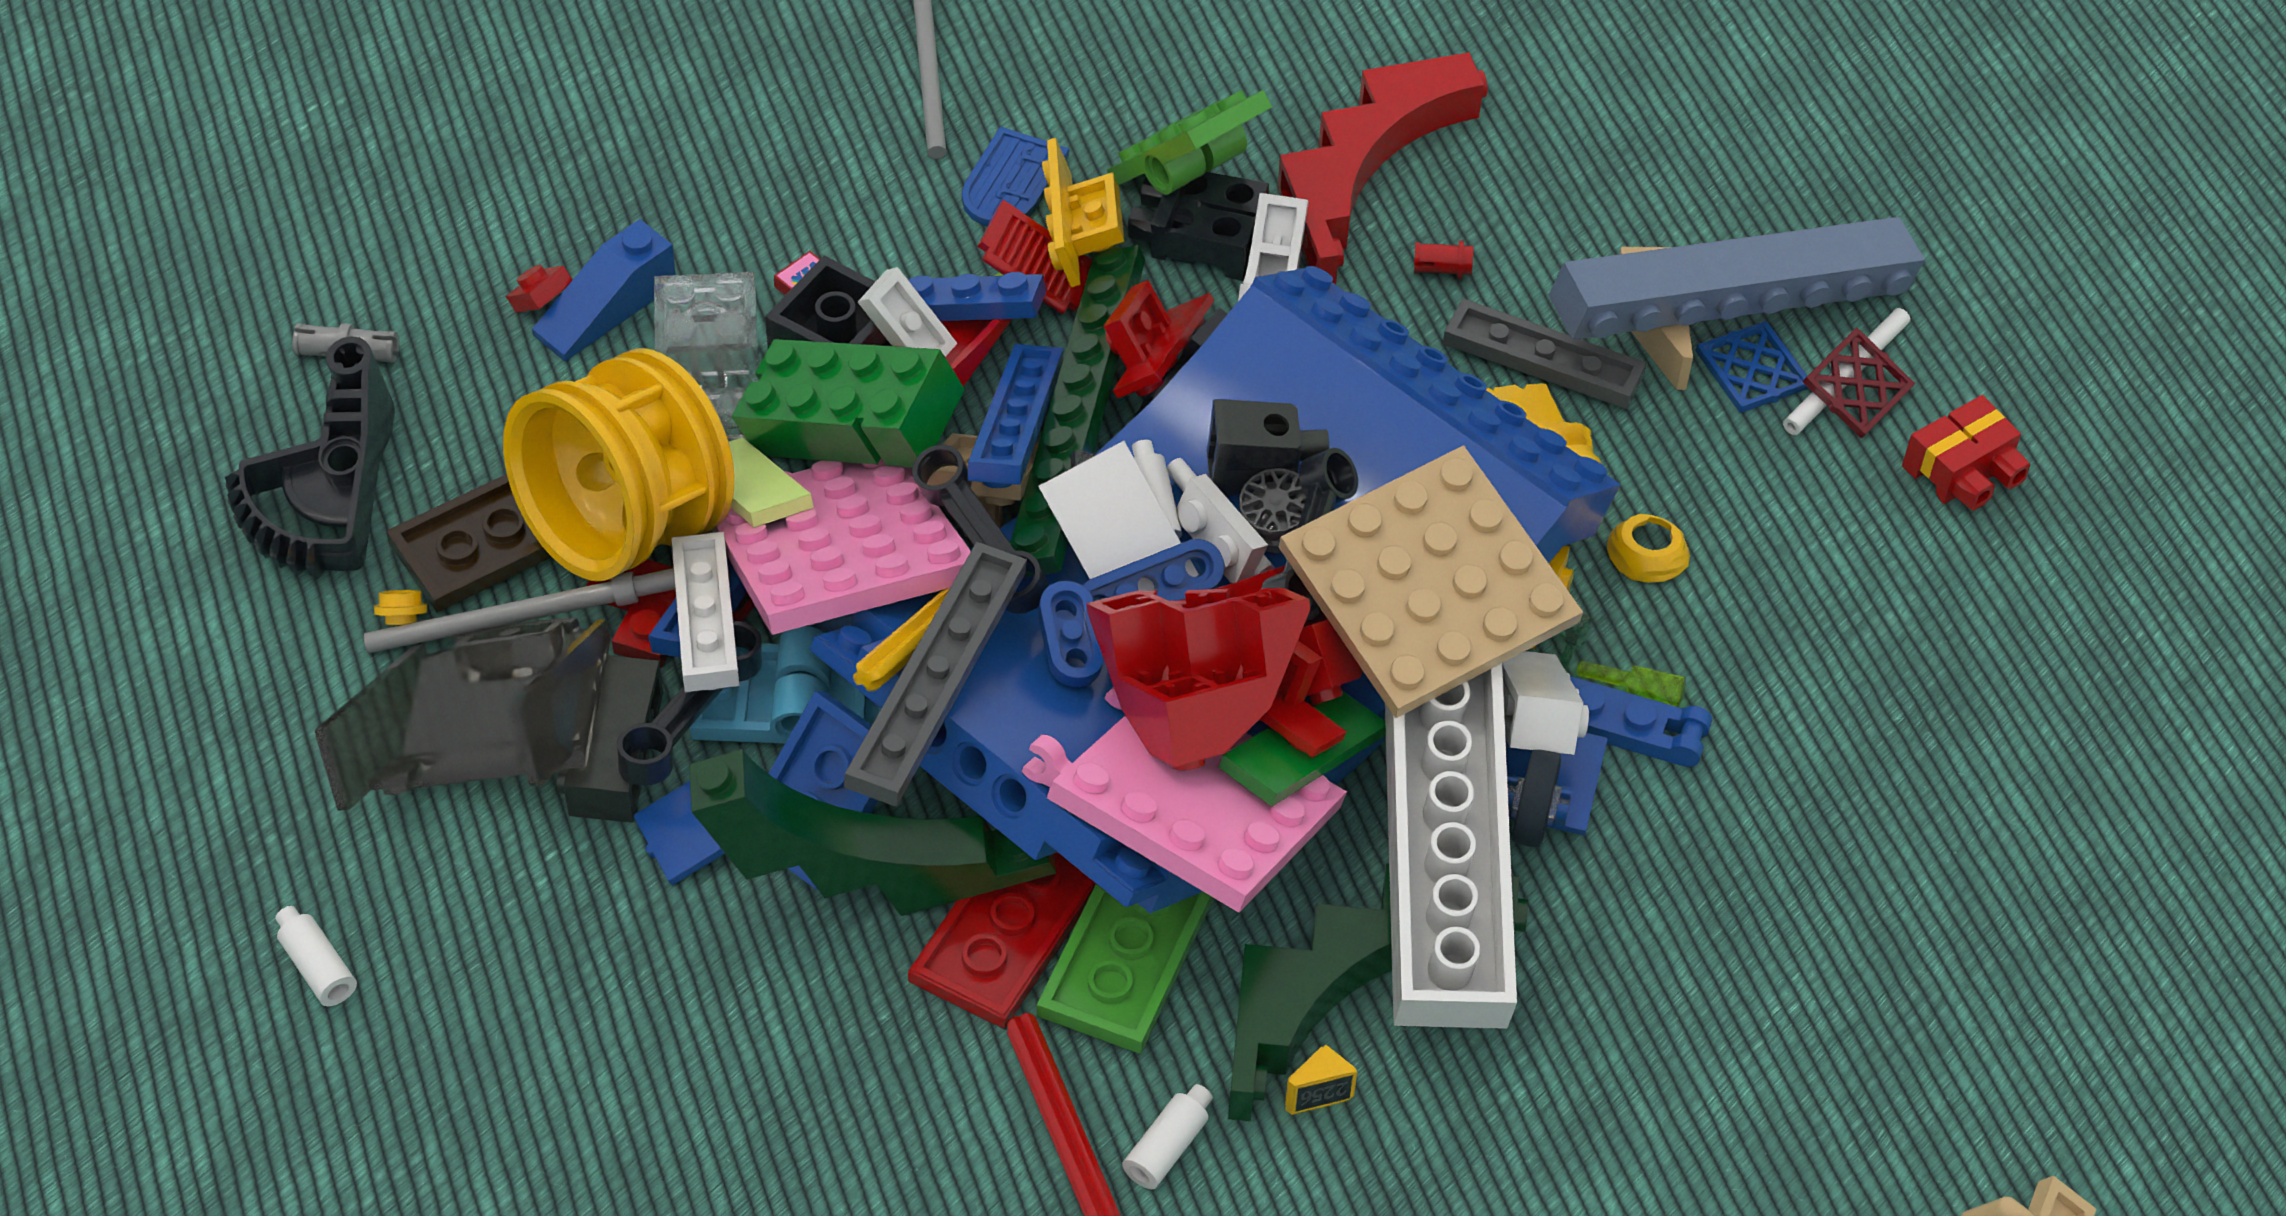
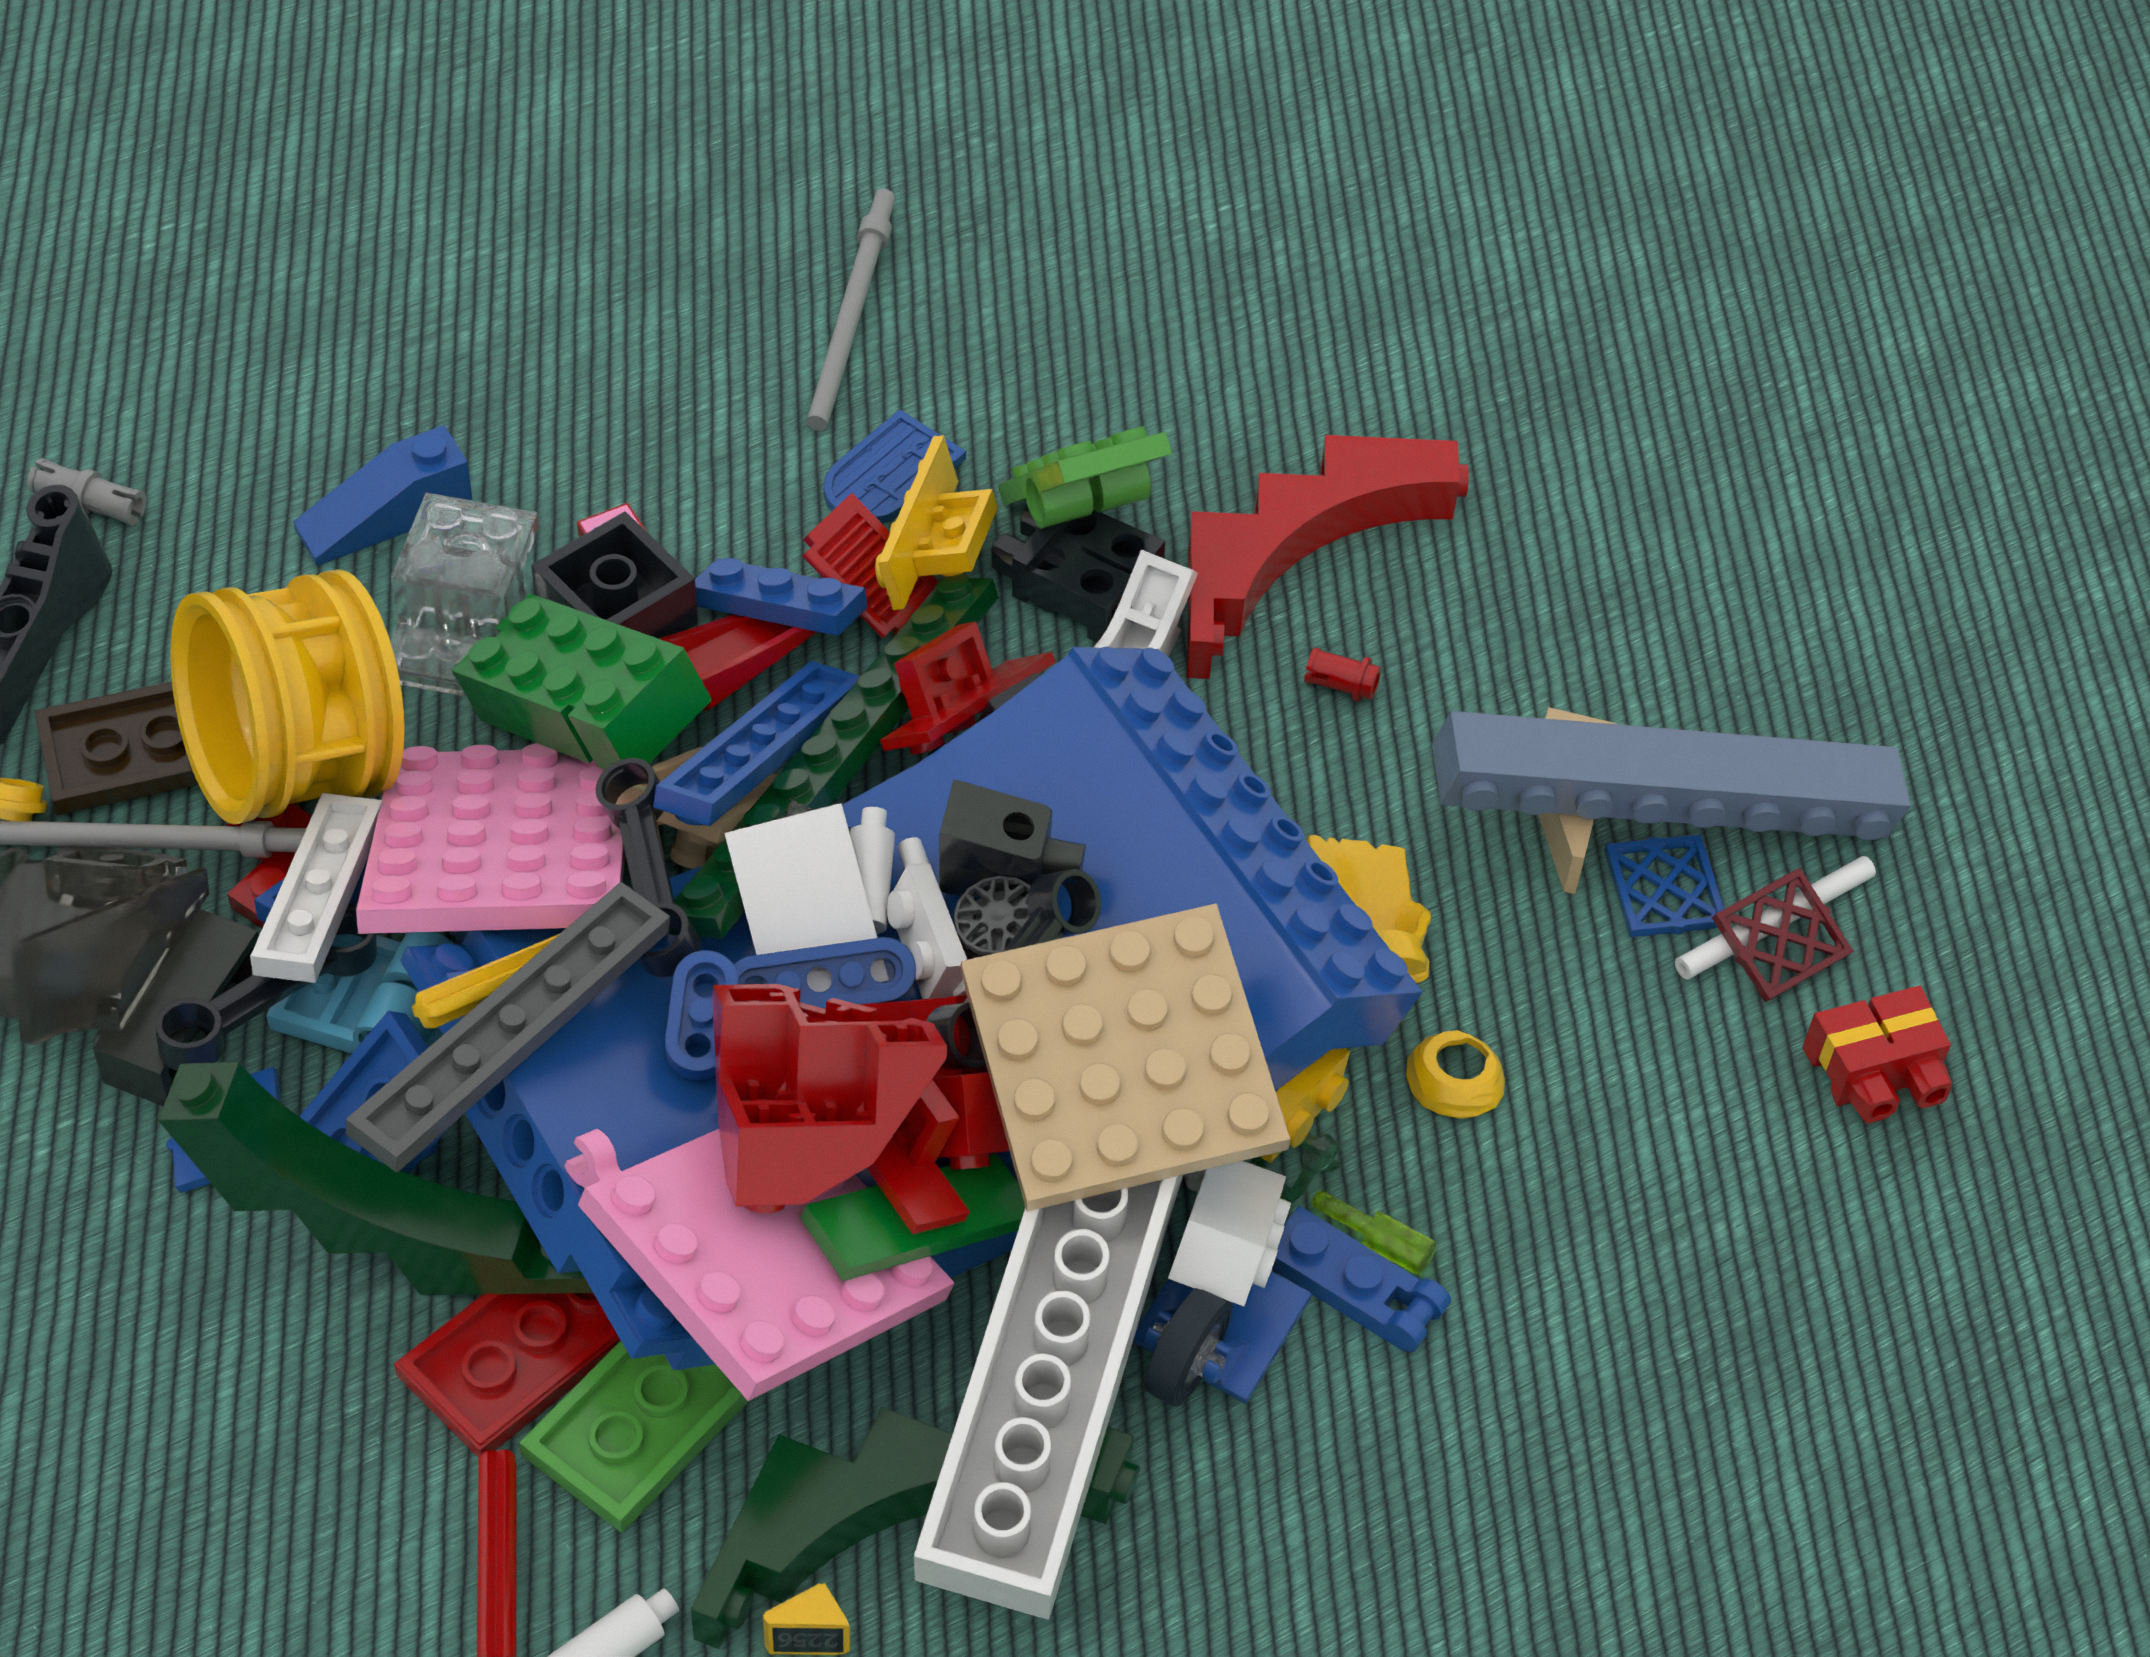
camera: 15 degrees right, 0 degrees up
(538, 287) = (314, 476): red plate -> none
(762, 488) = (442, 751): yellowish green piece -> none
(904, 314) = (684, 605): white plate -> none
(1544, 353) = (1413, 812): dark grey plate -> none

